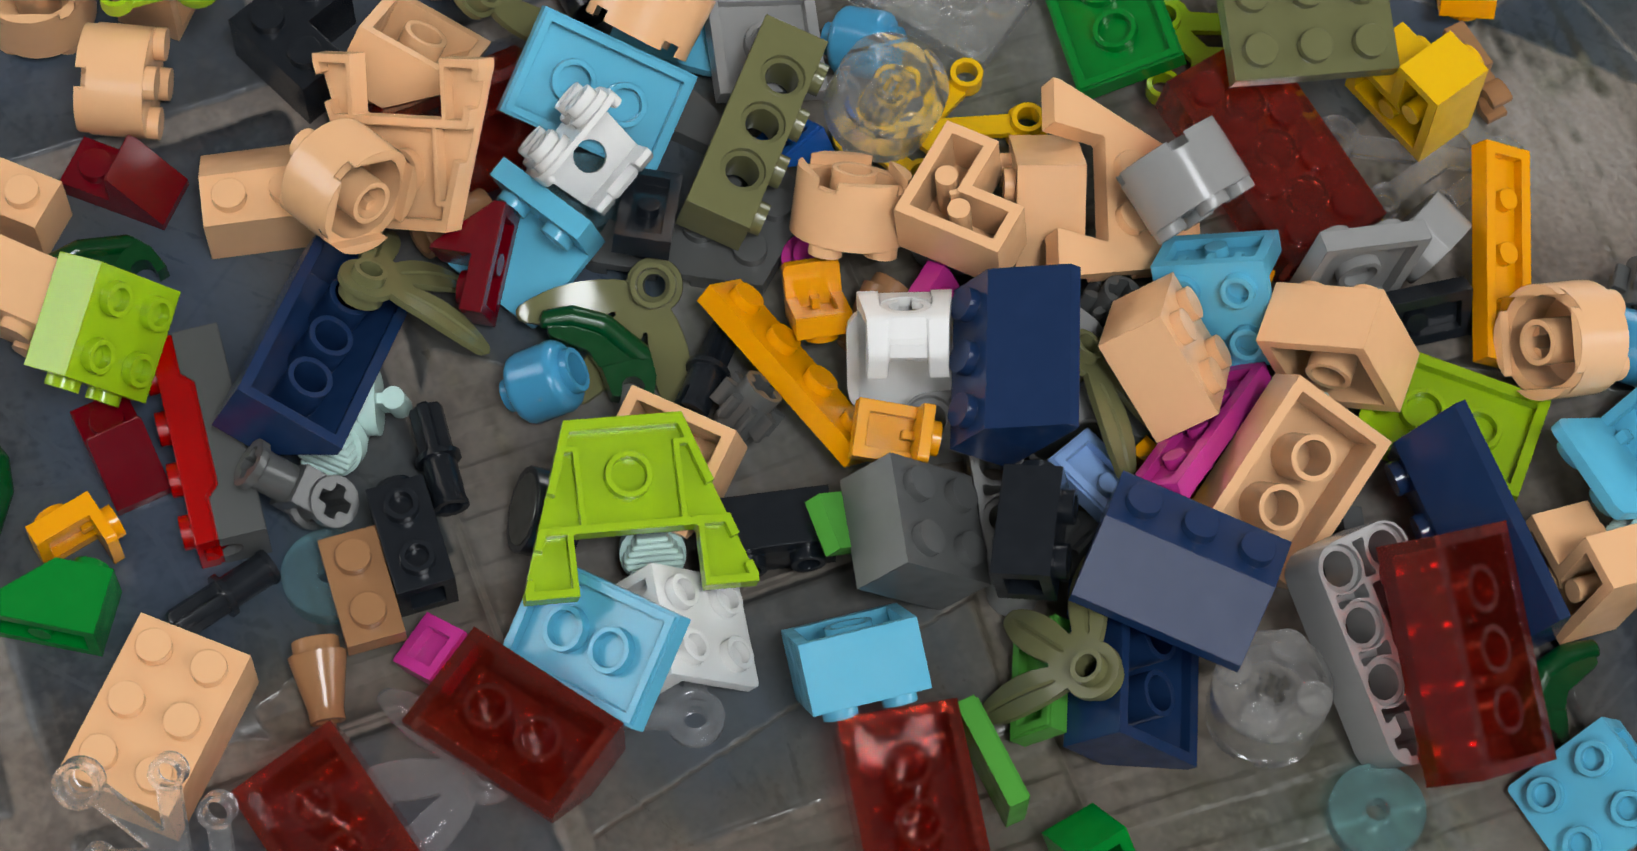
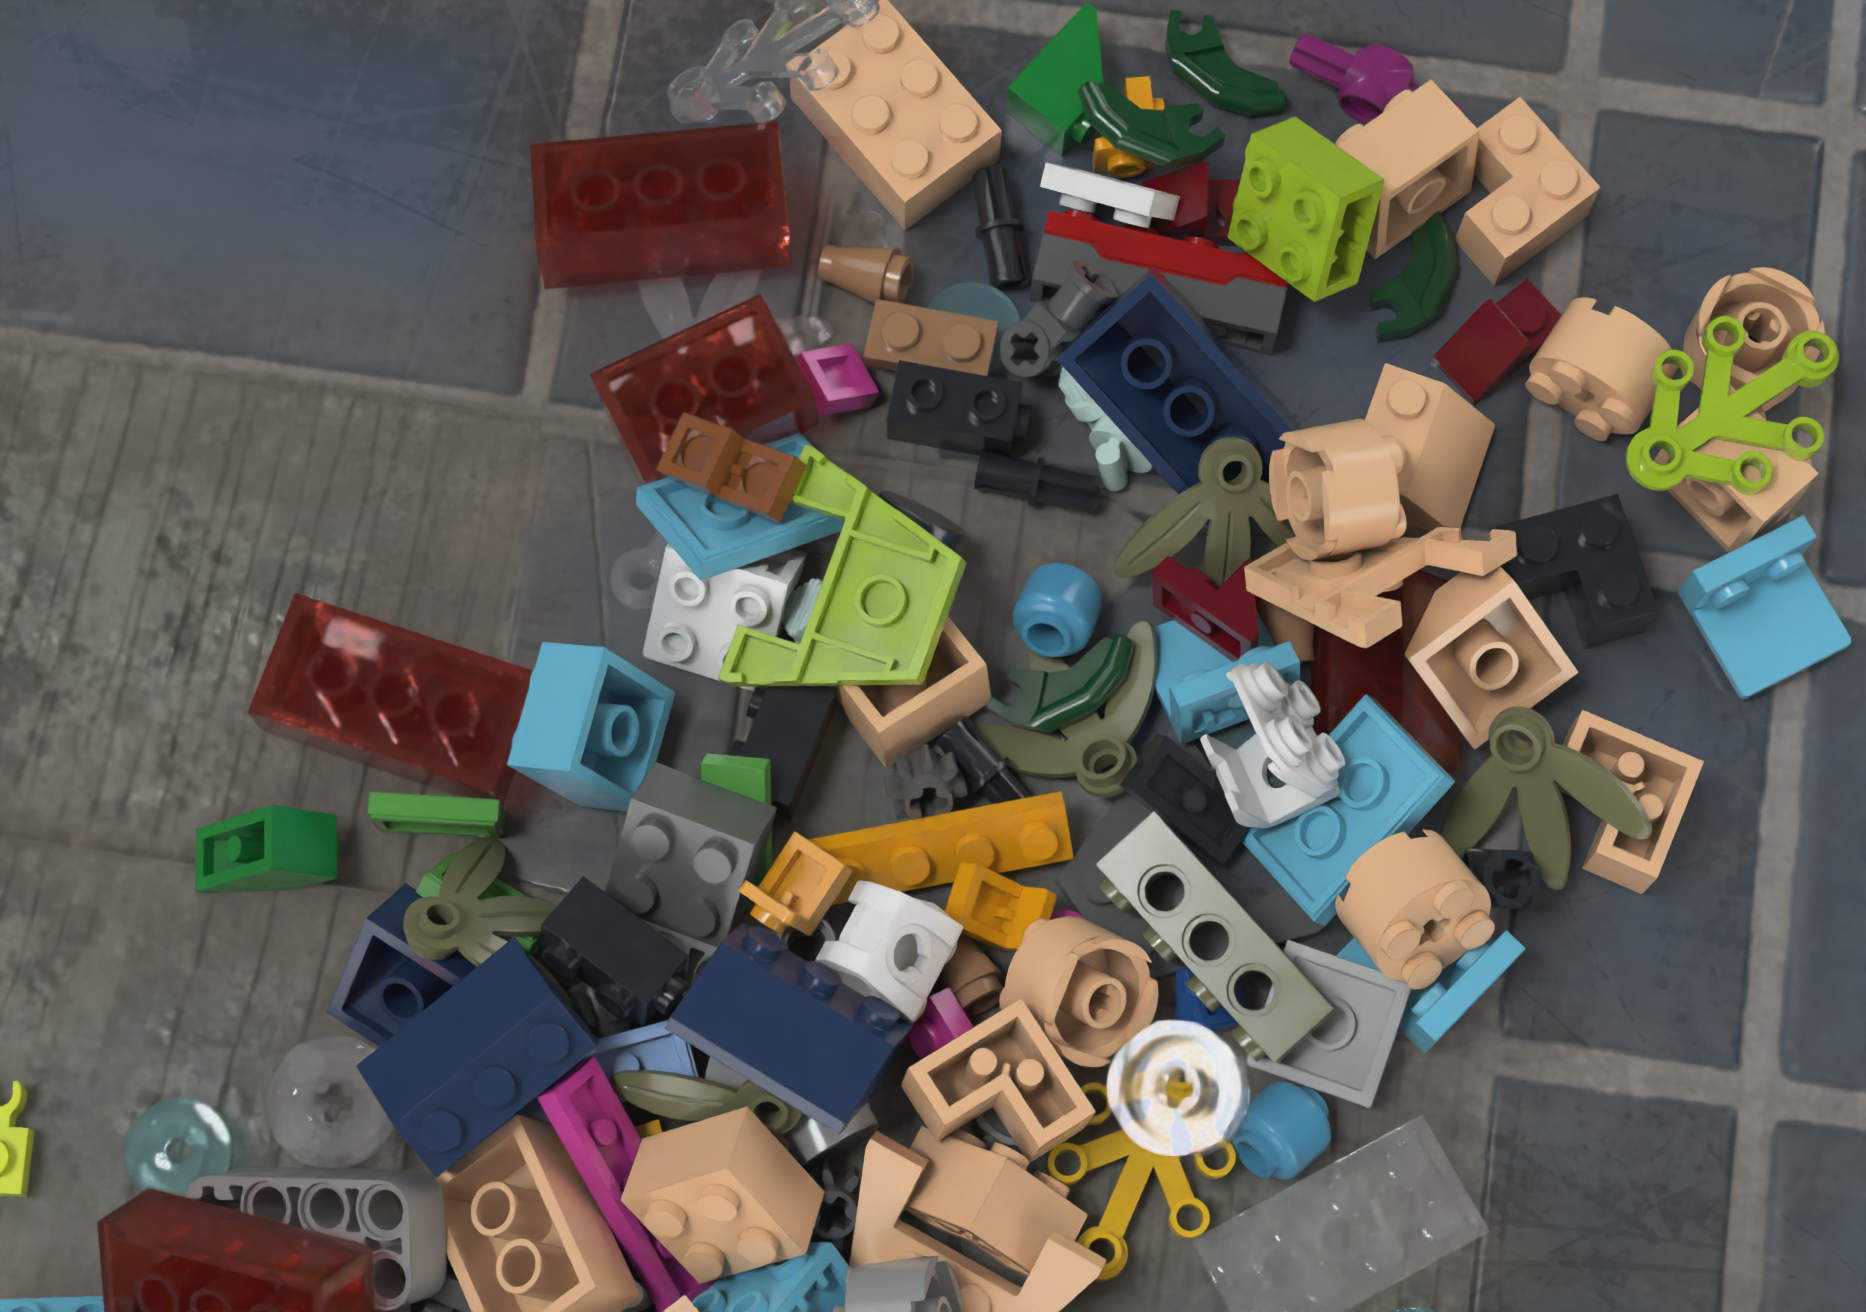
camera: 120 degrees right, 10 degrees up
(85, 494) = (1148, 134): none -> dark green piece
(151, 530) = (1132, 202): none -> white plate
(577, 651) = (731, 467): none -> dark orange slope

